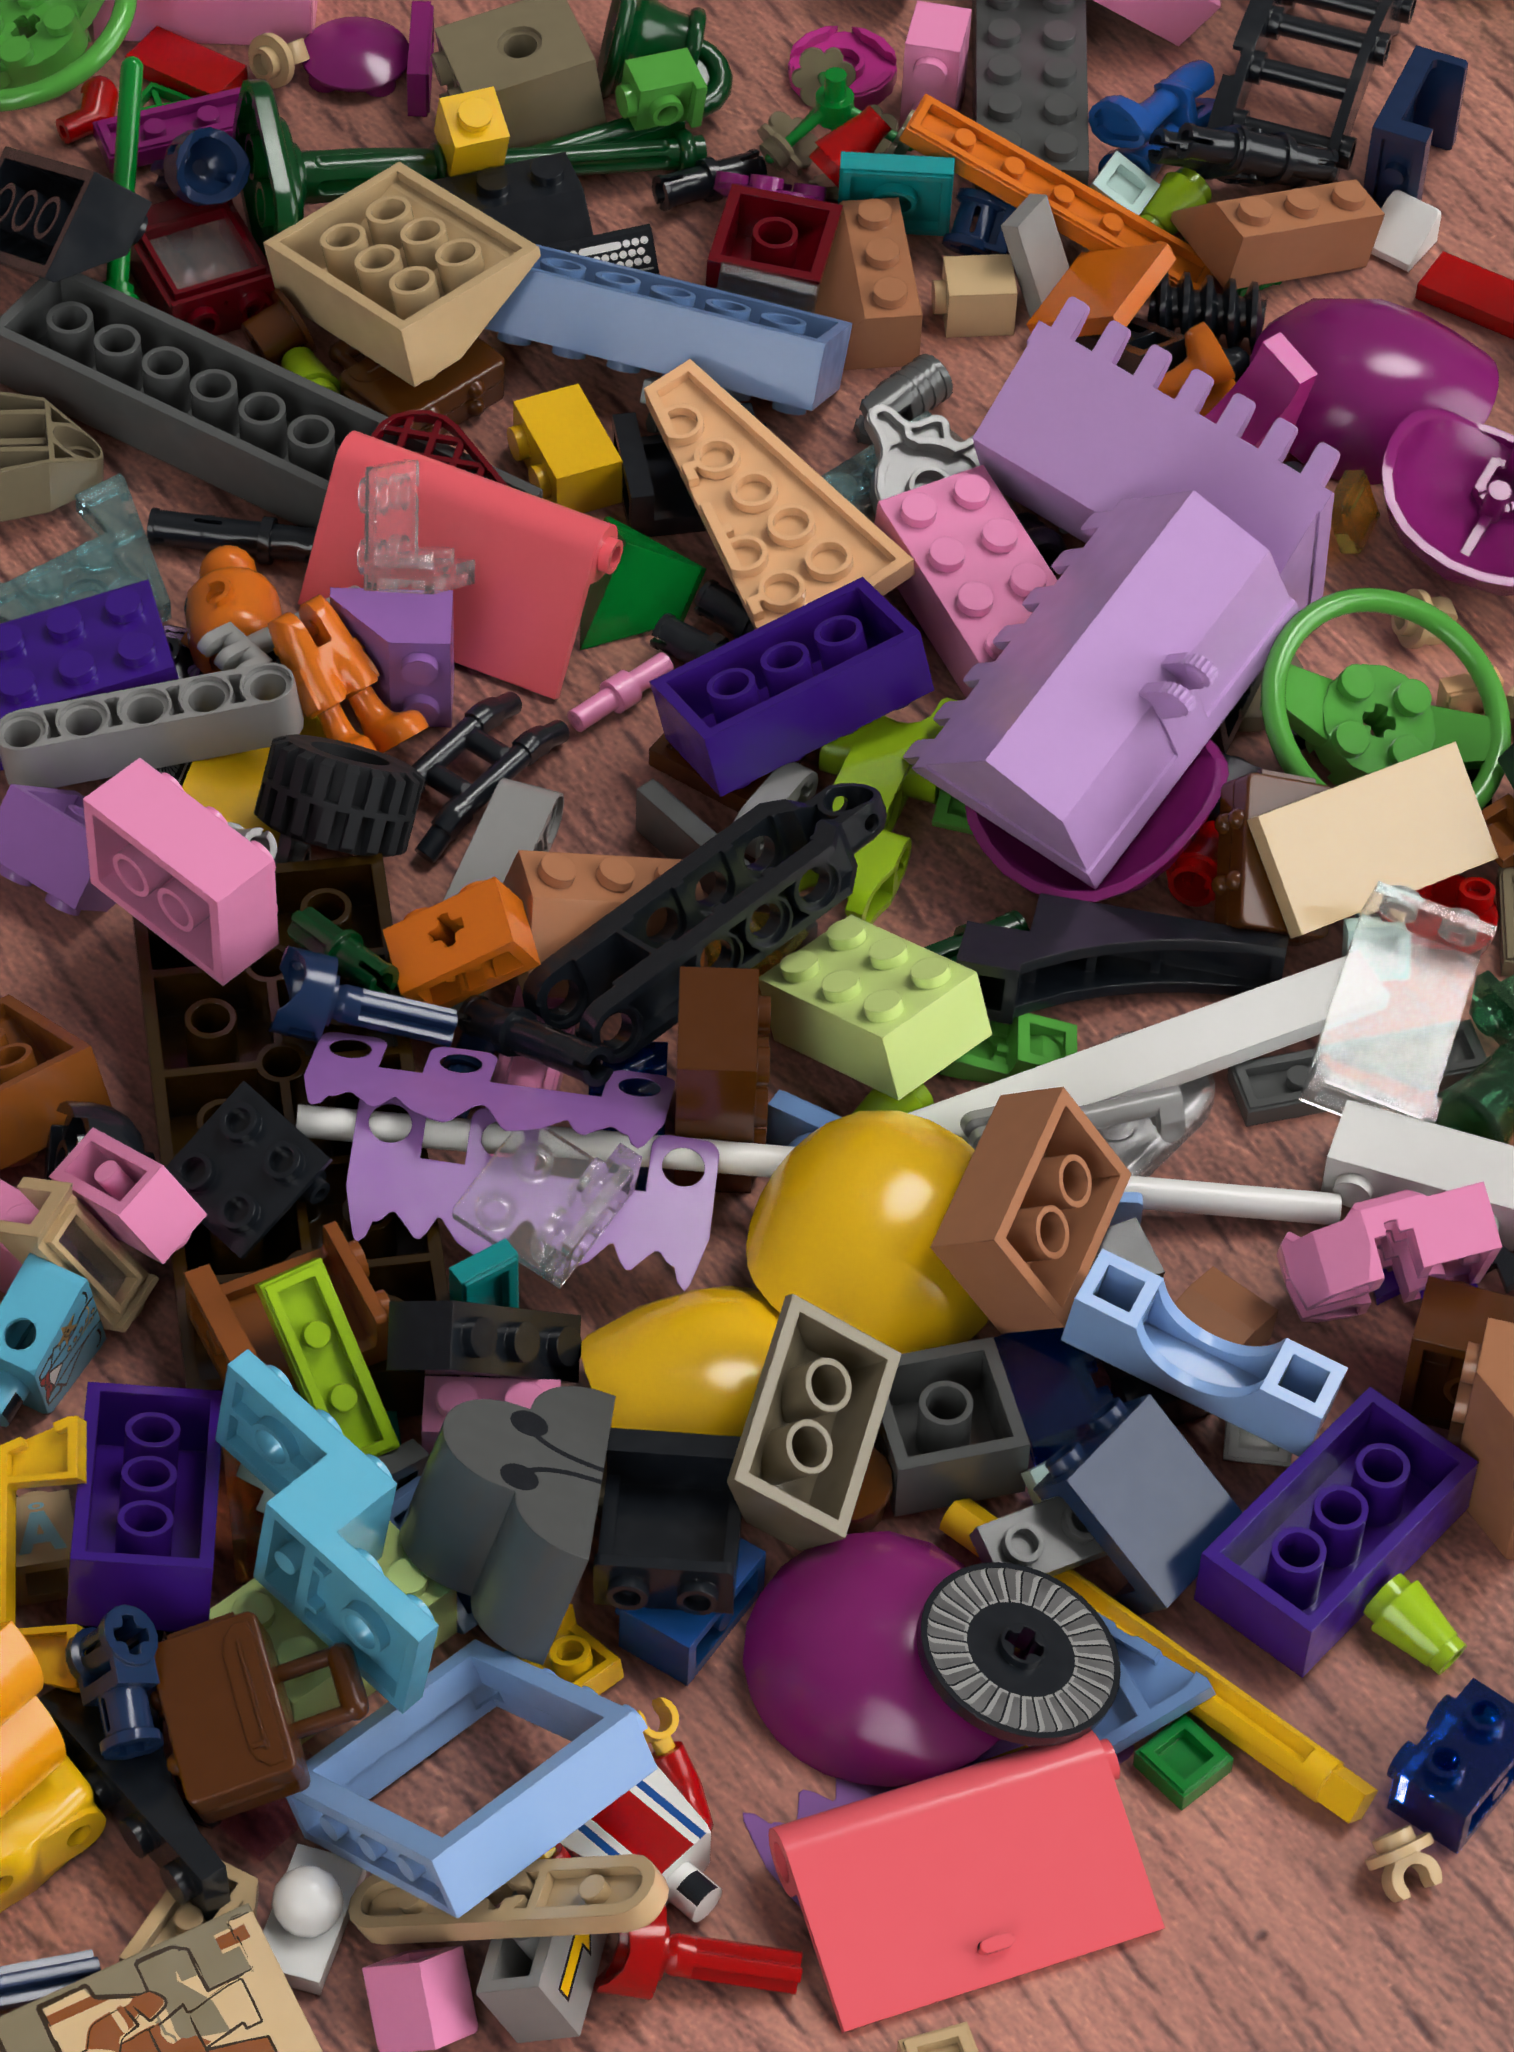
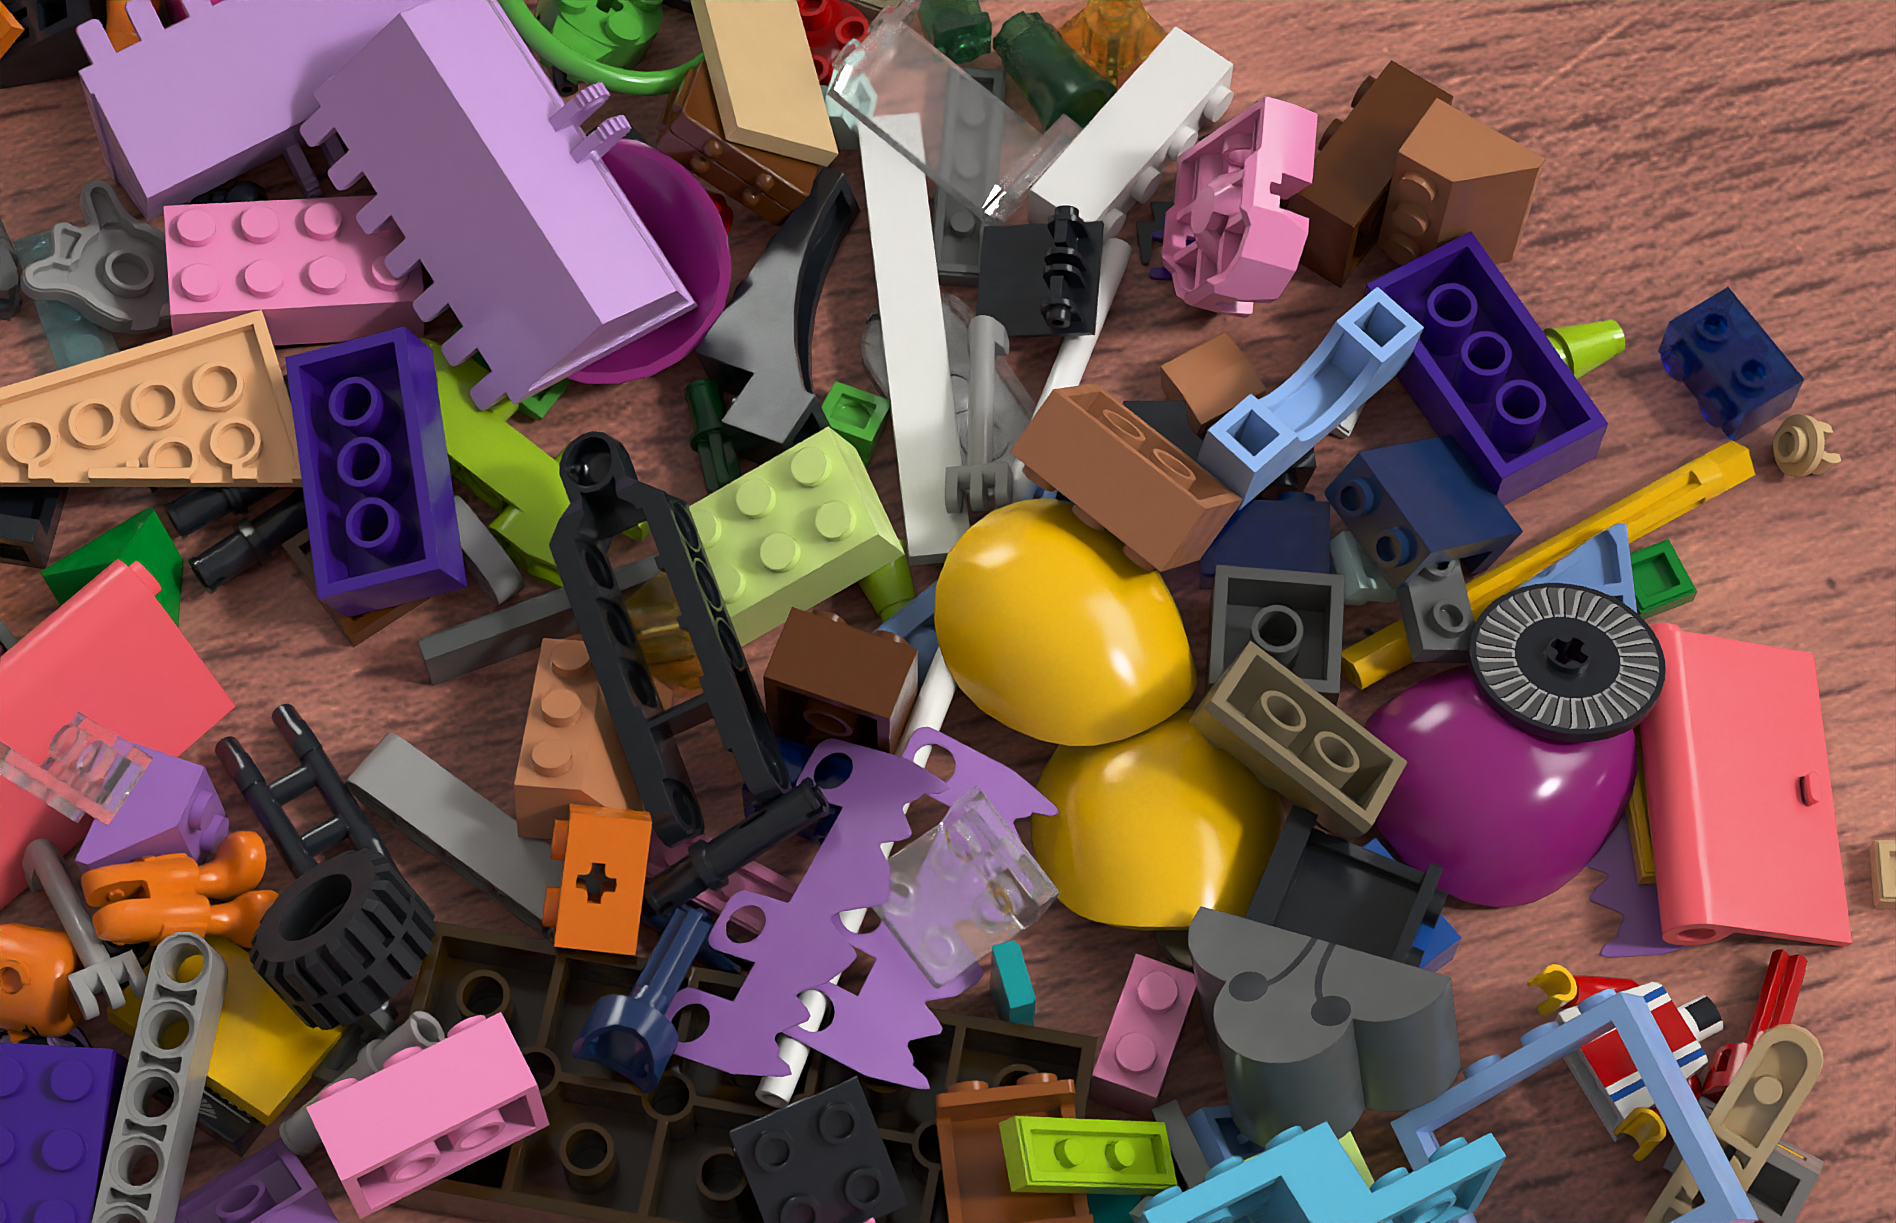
camera: 70 degrees left, 15 degrees up
(355, 961) = (565, 995): dark green axle -> none
(483, 1341) = (1102, 1015): black arch -> none
(619, 692) = (259, 640): bright pink bar -> none
(1257, 1138) = (1042, 276): none -> black hinge

